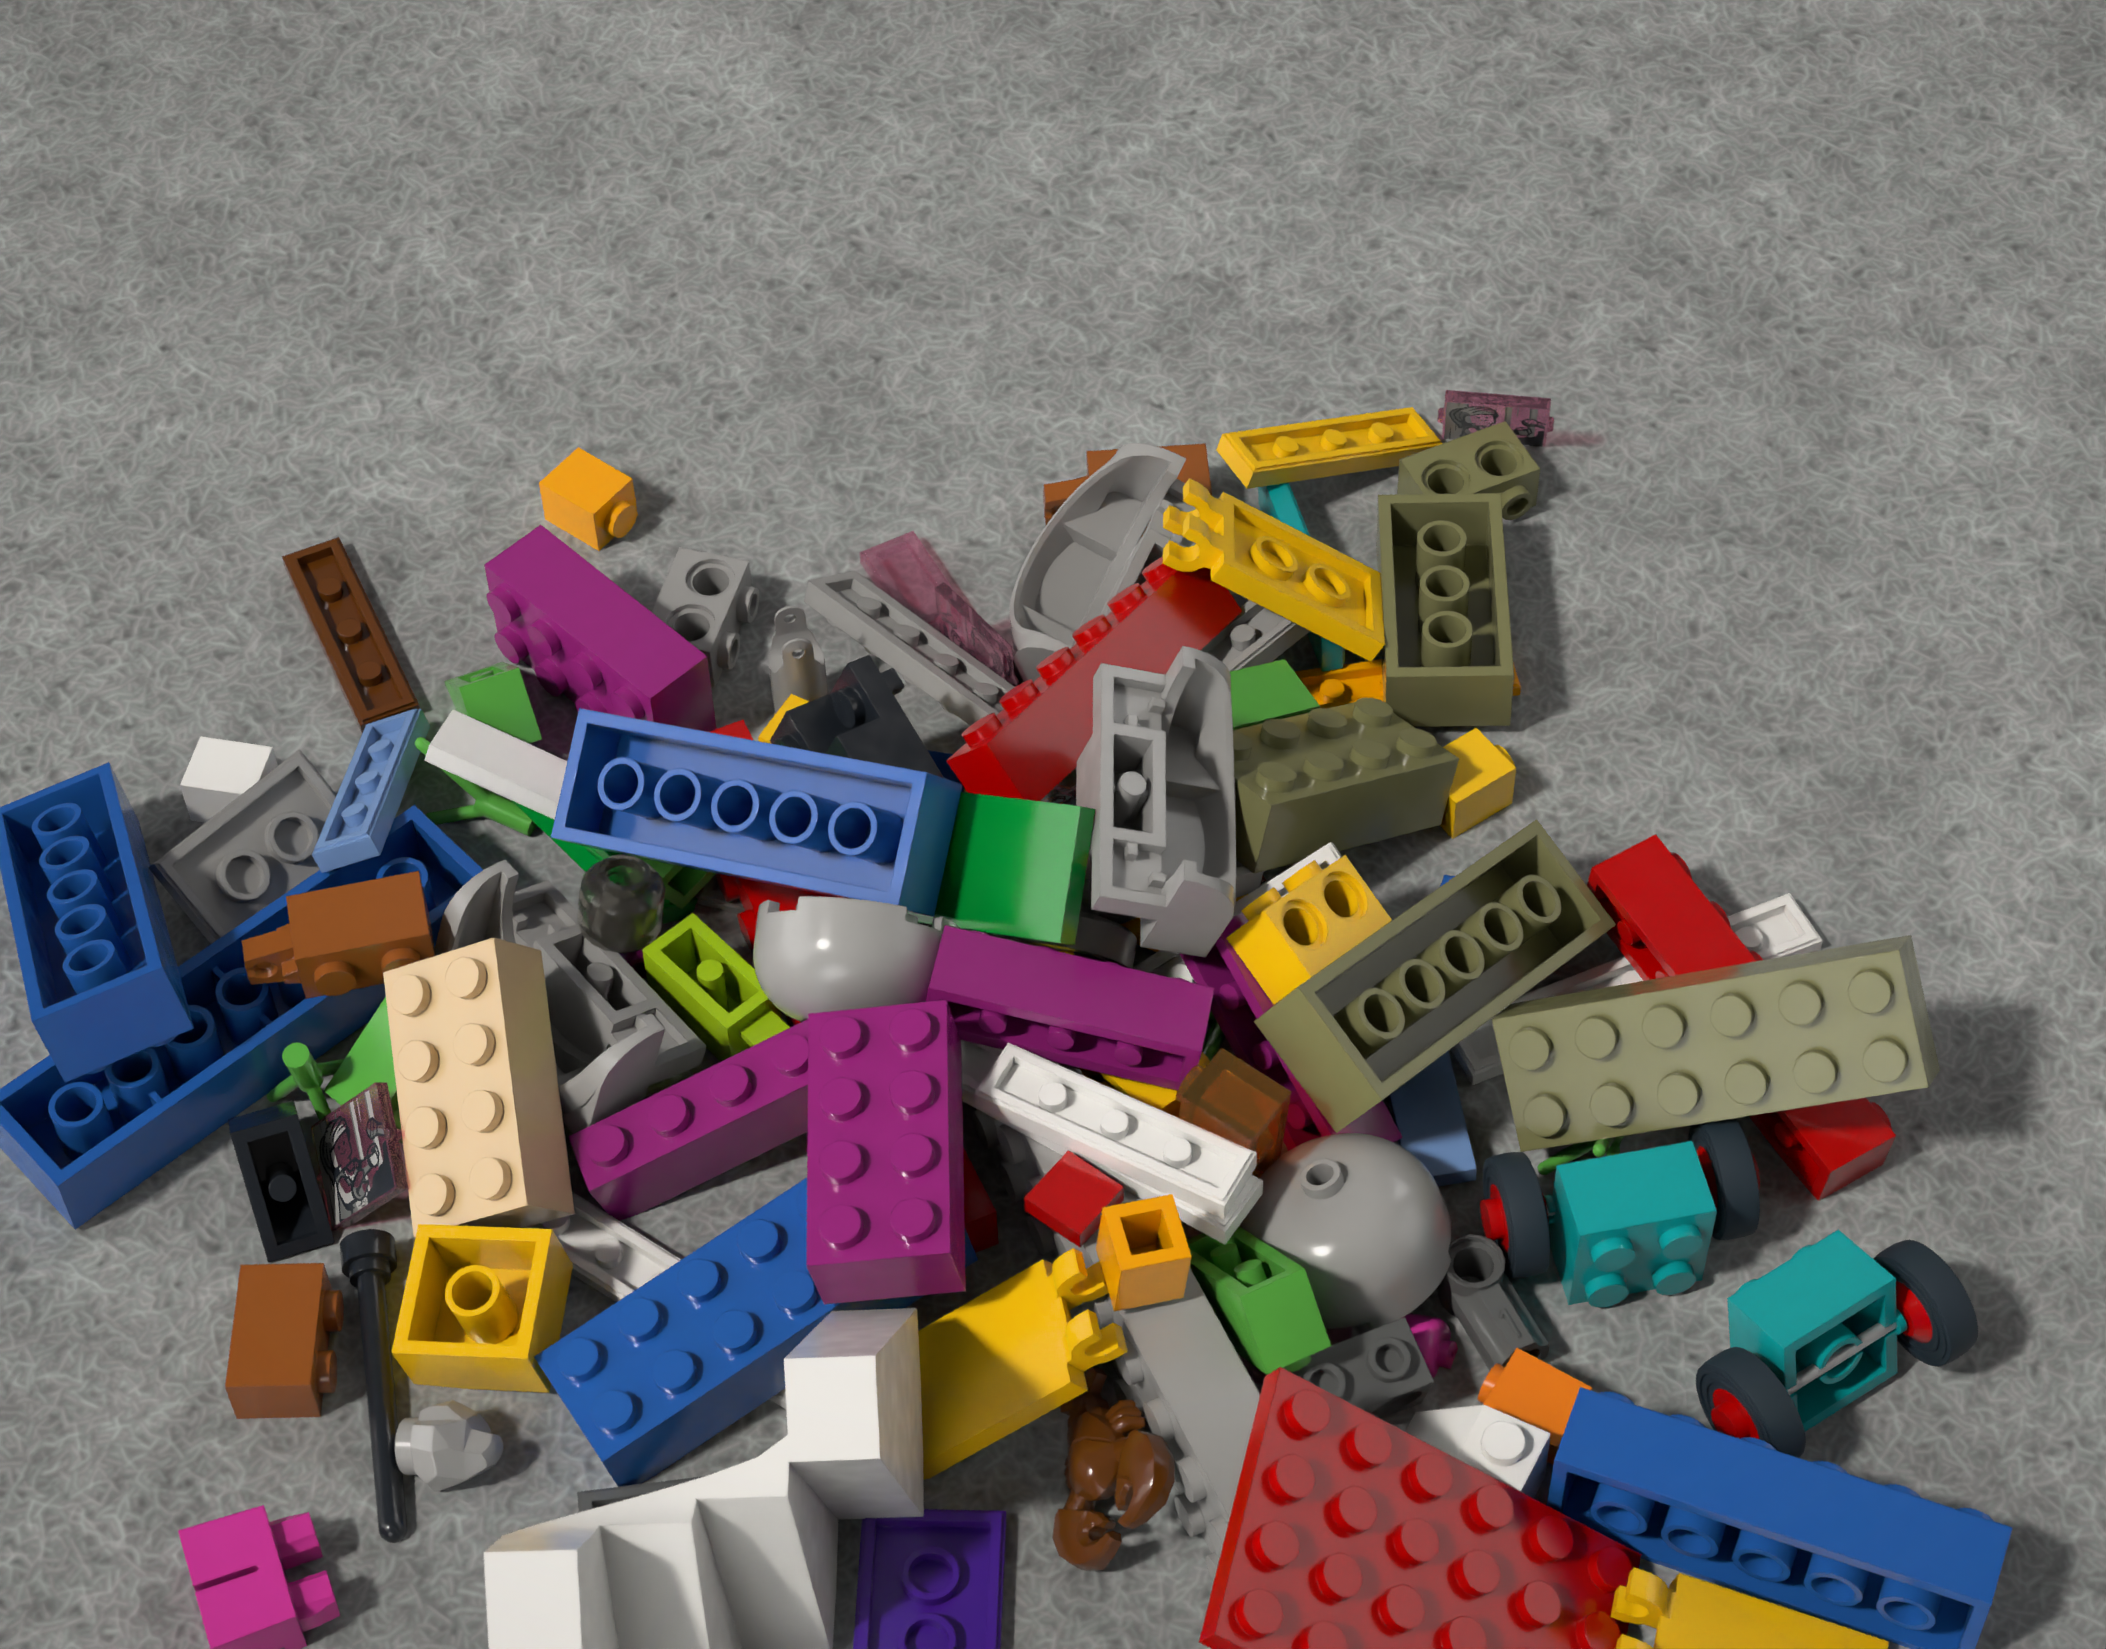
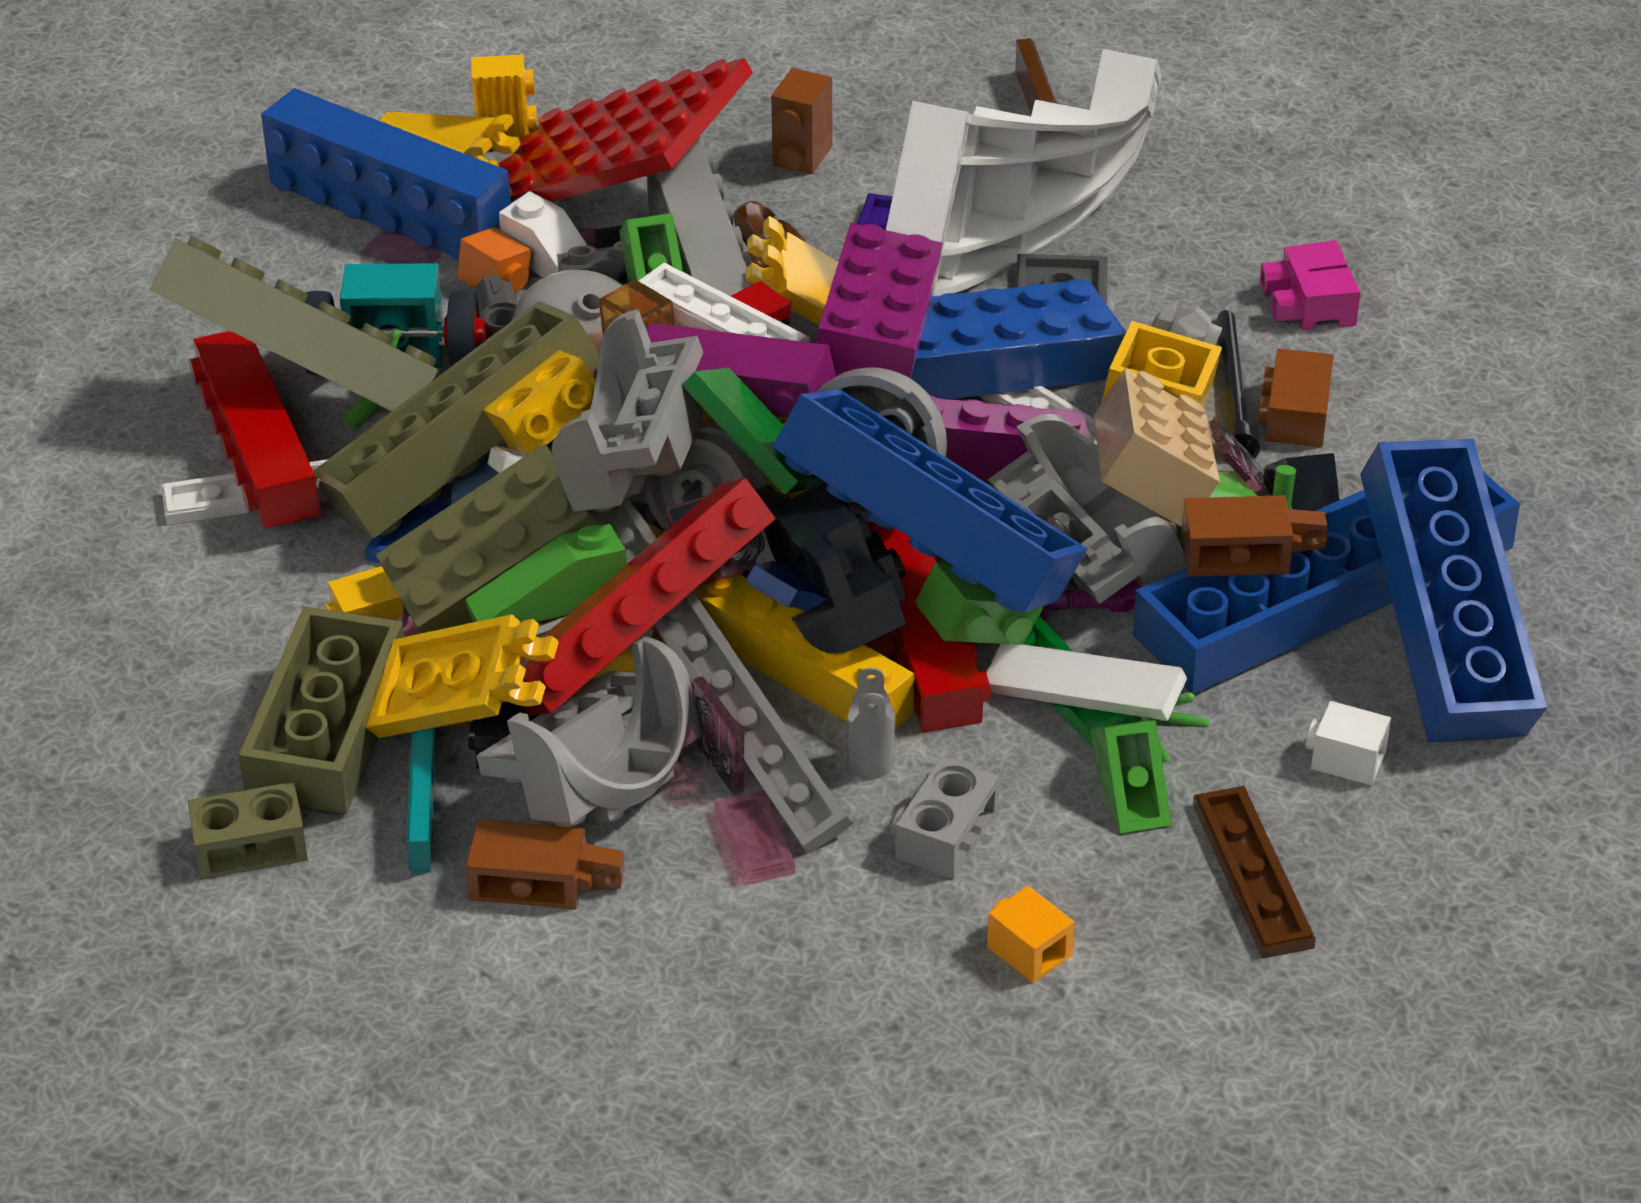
camera: 170 degrees left, 10 degrees down
(249, 849) = (1319, 671): light grey tile -> none
(371, 791) = (1231, 688): medium blue tile -> none
(593, 637) = (1048, 774): magenta brick -> none
(1143, 1252) = (724, 244): light orange brick -> none
(1325, 447) = (355, 857): yellow tile -> none
(1475, 411) = (199, 860): piece -> none
(1829, 1334) = (311, 236): brick -> none

